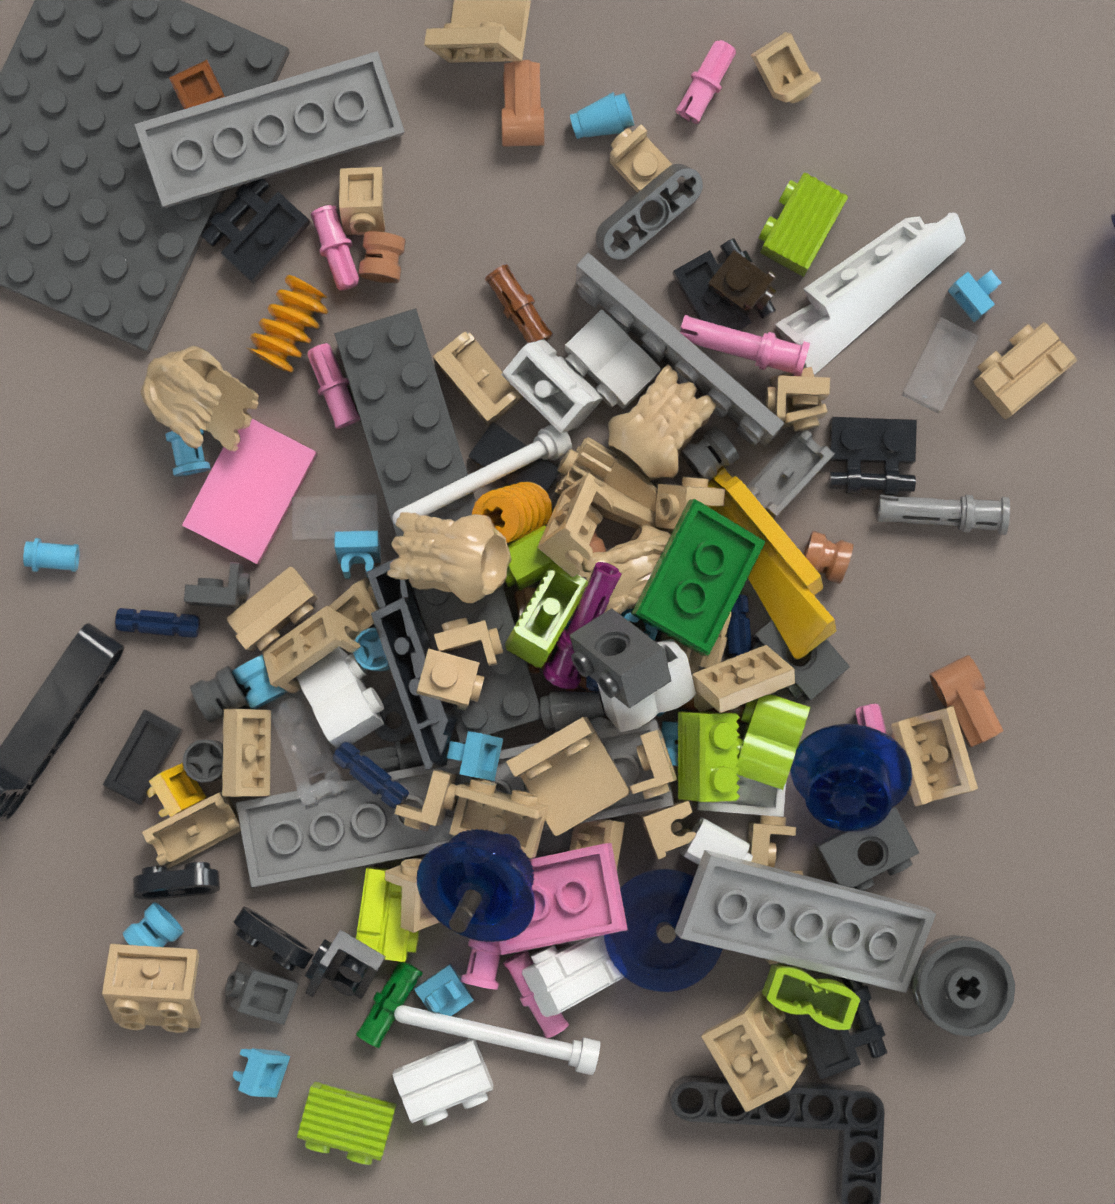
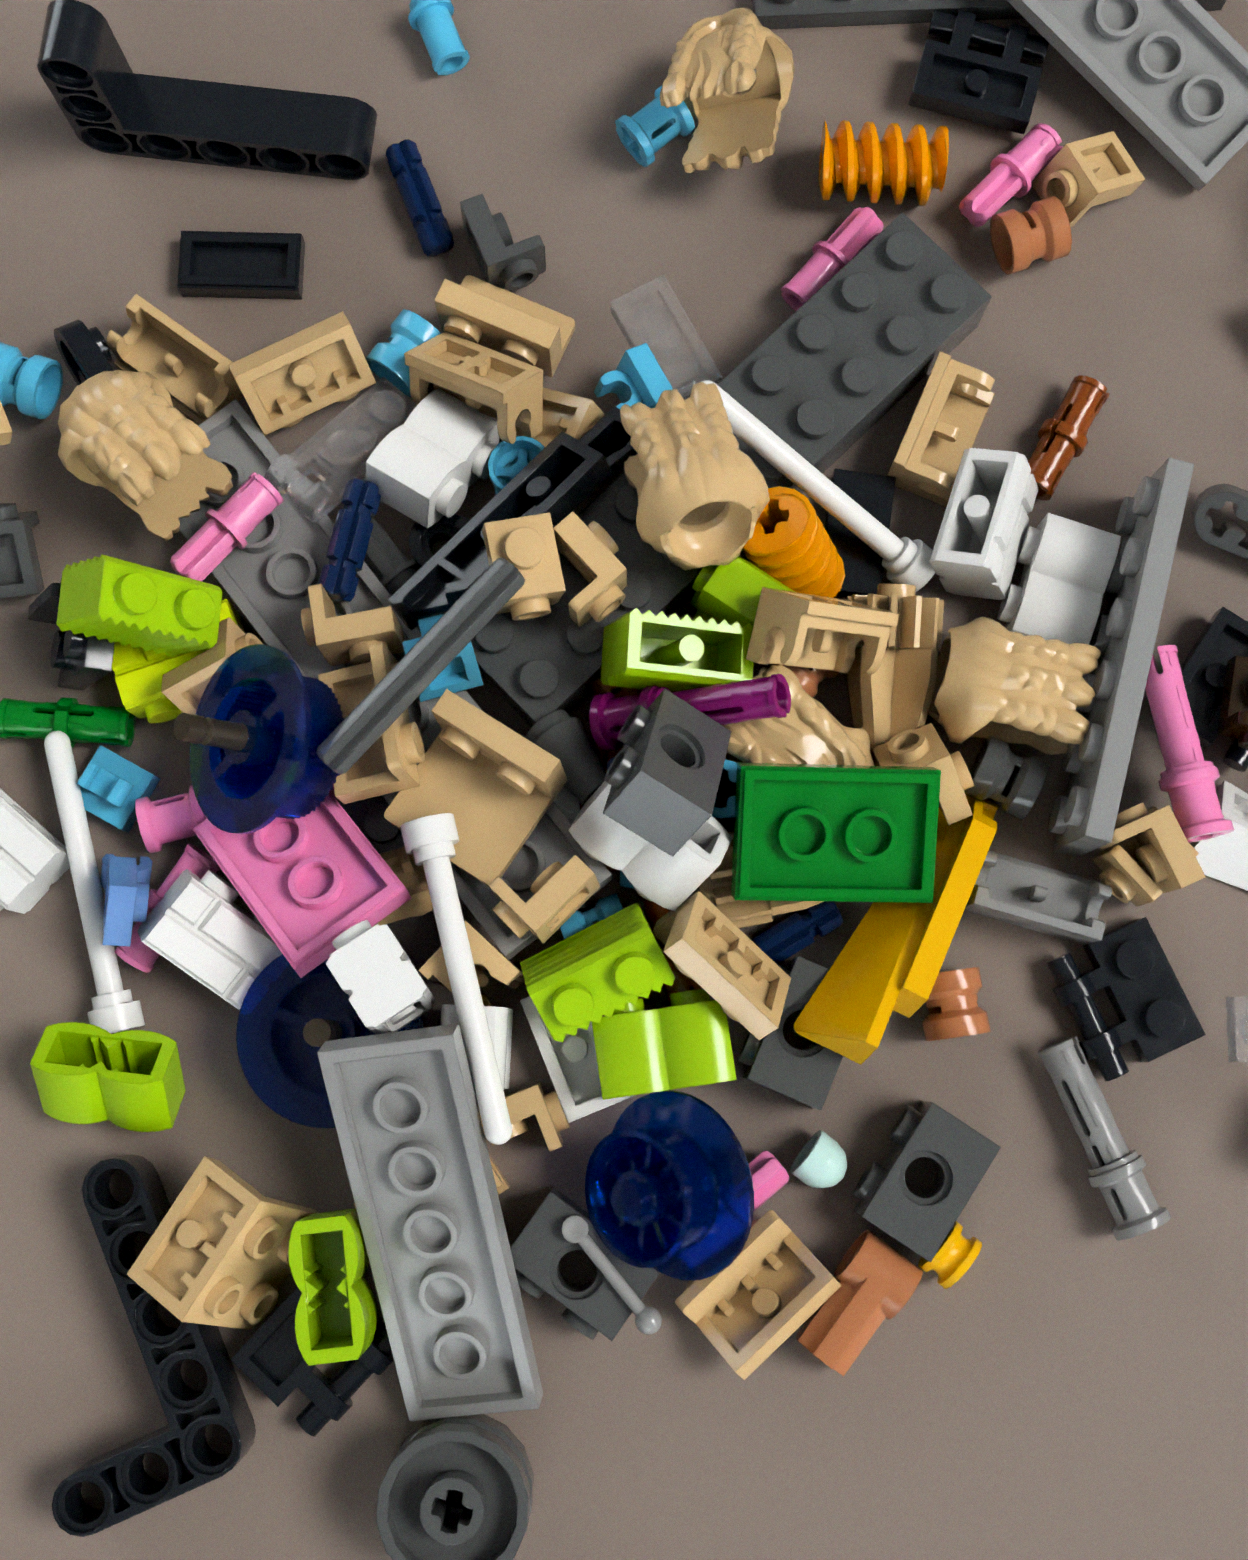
camera: 65 degrees right, 5 degrees down
(175, 790) = (218, 316): yellow tile -> none
(199, 760) = (265, 323): dark grey wheel -> none
(218, 694) = (365, 307): dark grey wheel -> none
(250, 491) = (646, 221): bright pink tile -> none
(250, 875) = (139, 447): none -> tan piece
(287, 949) = (83, 525): black plate -> none
(325, 846) = (226, 528): none -> bright pink axle
(359, 920) = (138, 606): none -> lime brick
(487, 770) = (420, 666): none -> dark grey axle
(521, 1015) = (125, 896): none -> medium blue plate
(592, 815) = (432, 844): none -> white piece
(620, 1078) = (104, 1076): none -> lime brick
(651, 882) = (379, 978): none -> white brick
(848, 842) = (575, 1230): none -> light grey hinge
(877, 681) = (820, 1162): none -> light aqua hinge
(939, 636) = (960, 1163): none -> dark grey brick
(966, 634) = (952, 1257): none -> yellow bush

